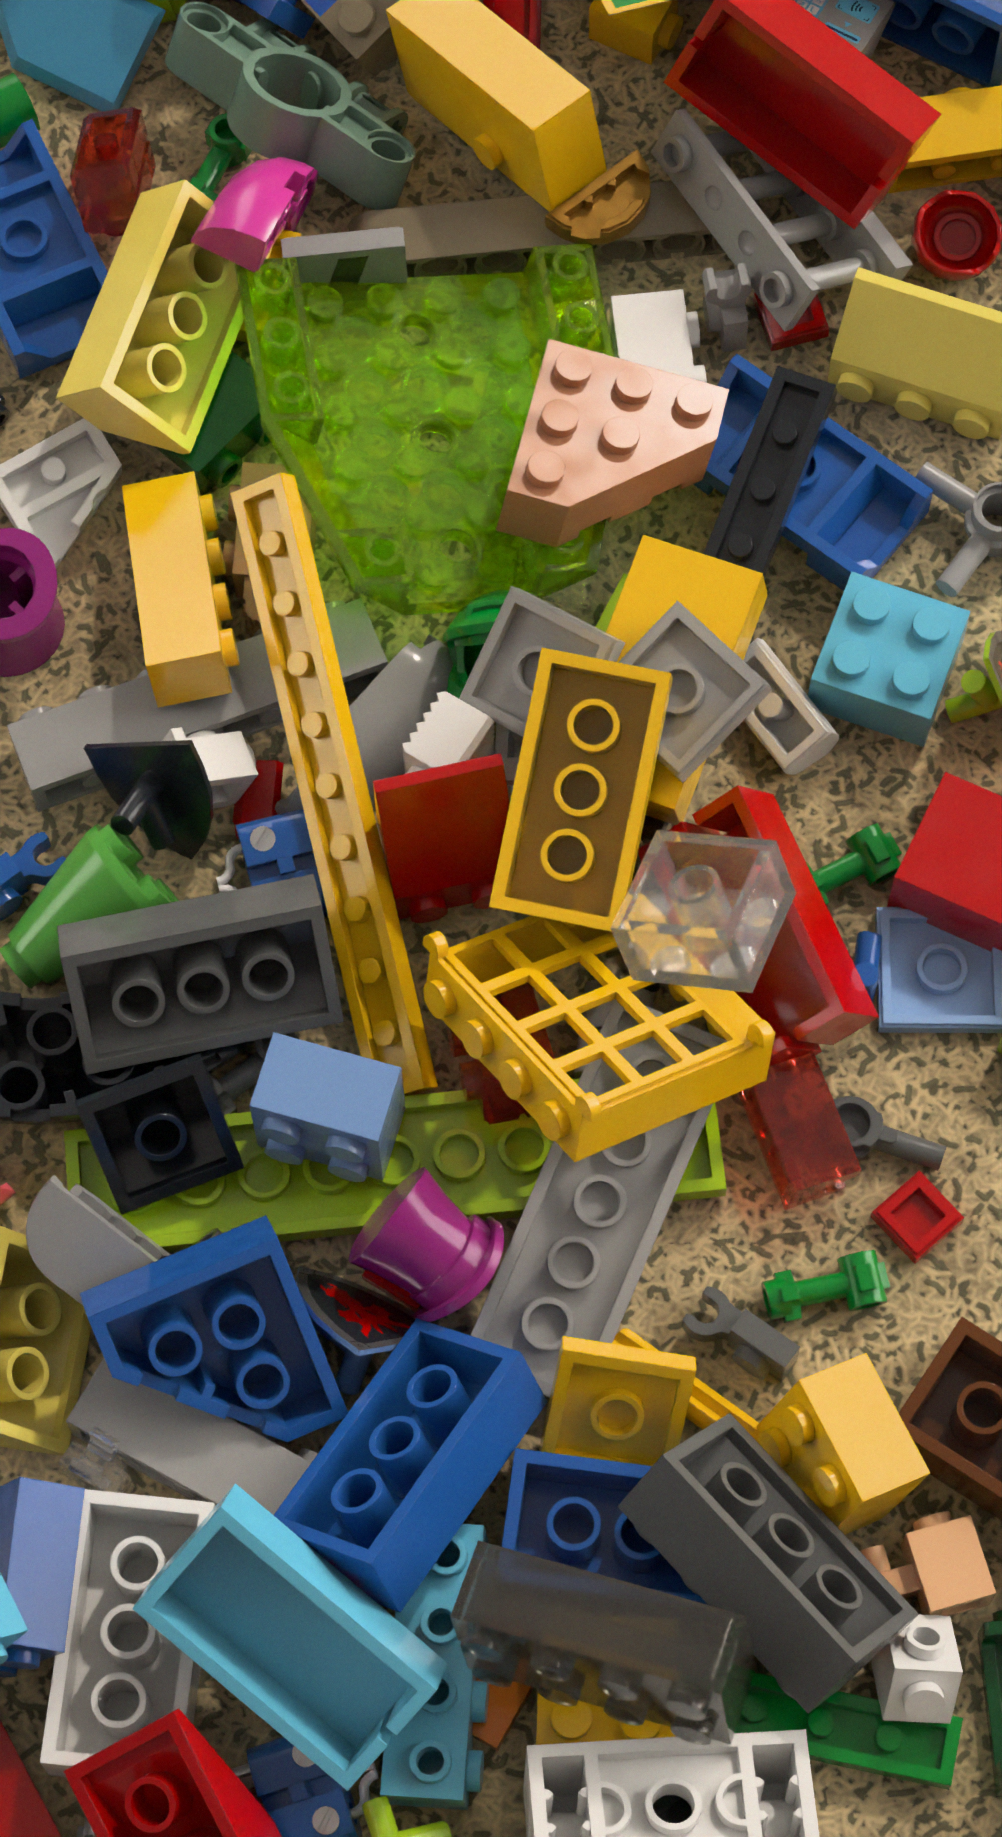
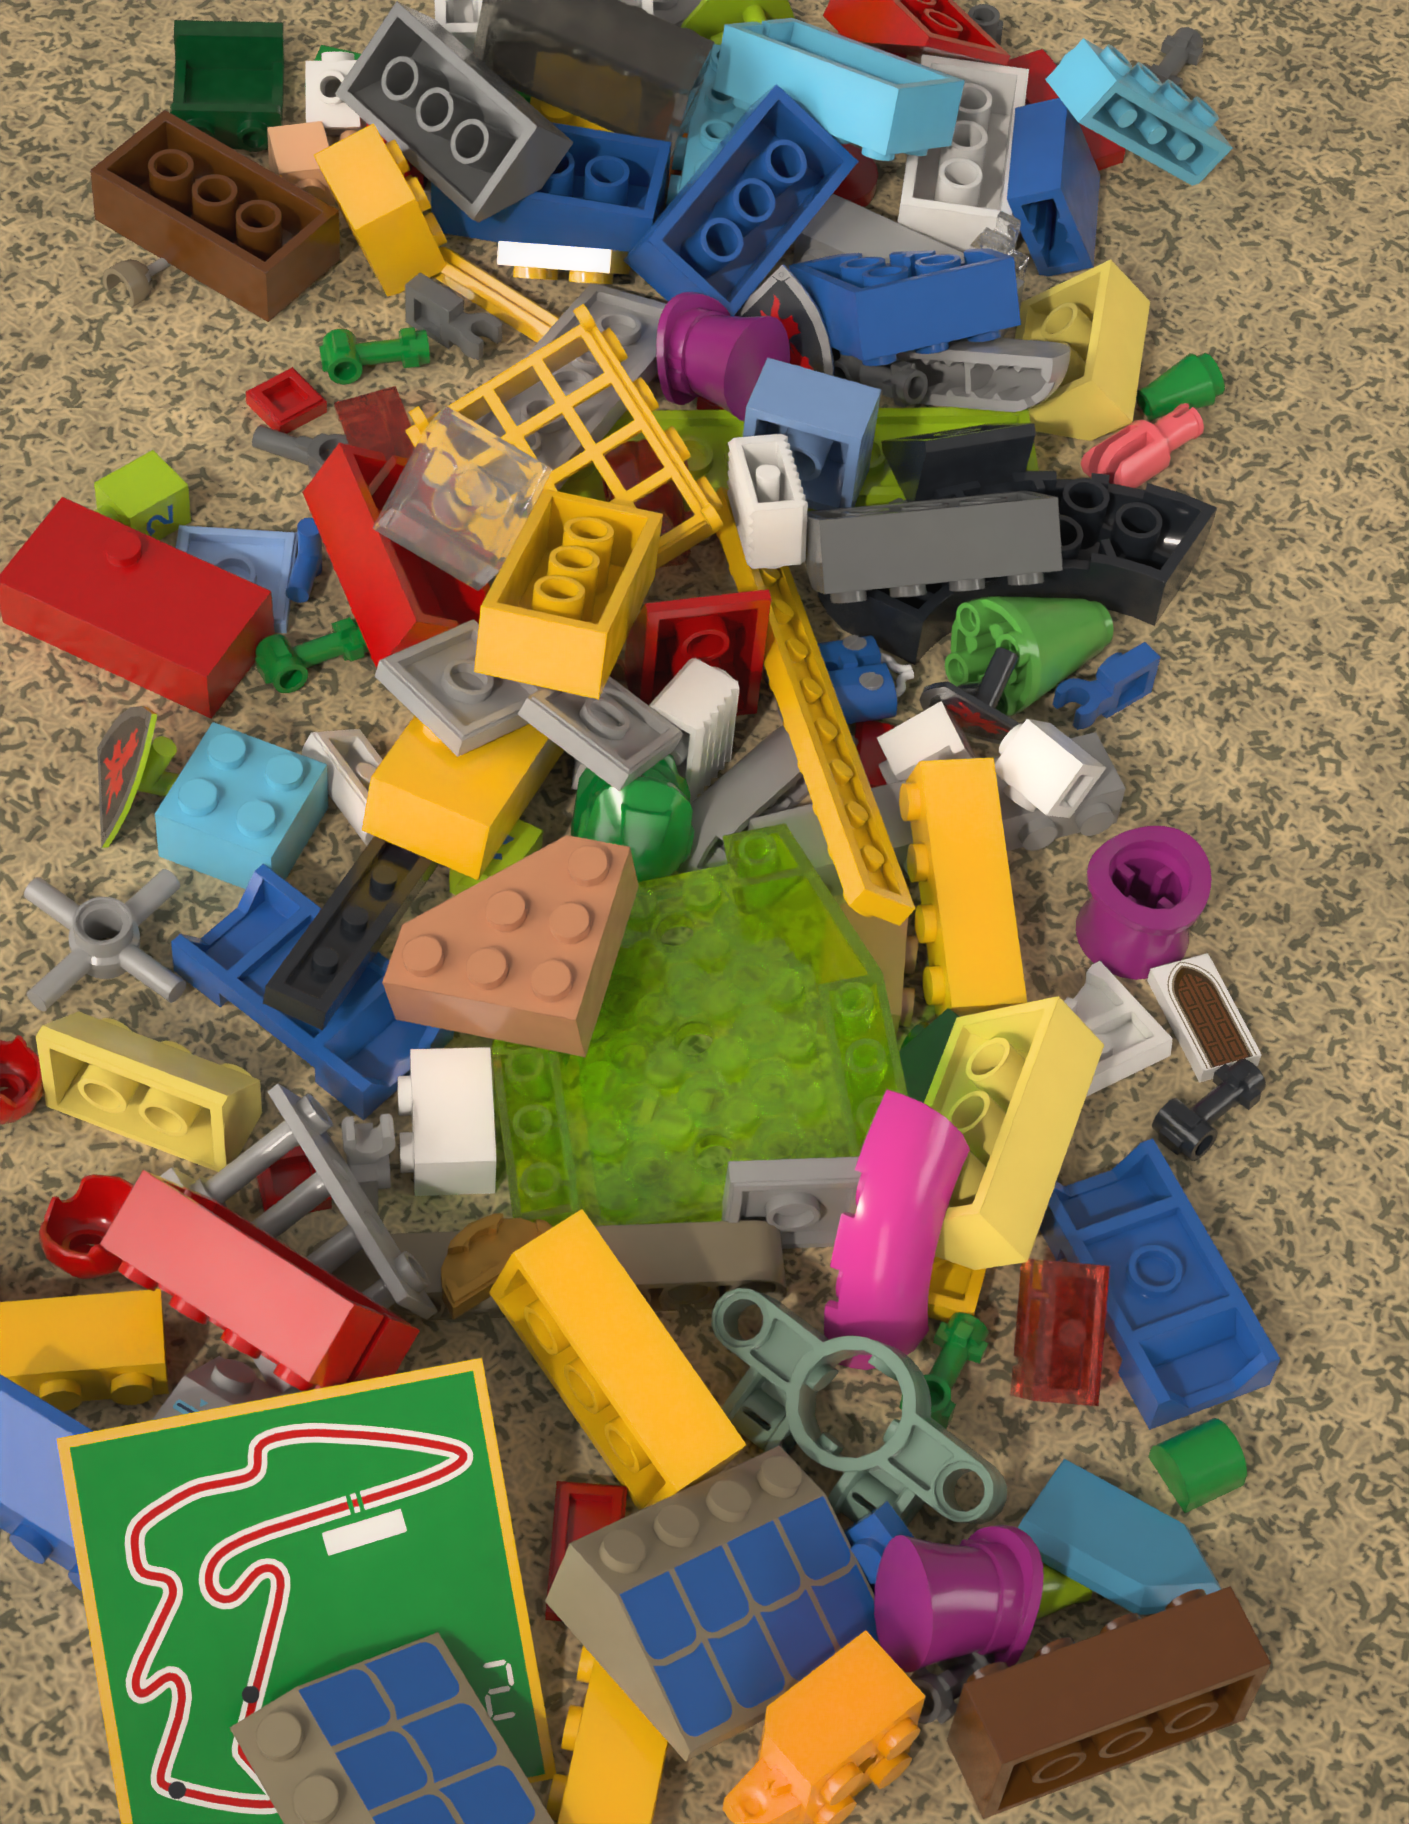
camera: 175 degrees right, 15 degrees down
(88, 692) = (1045, 769): none -> white brick
(376, 996) = (767, 501): none -> white brick

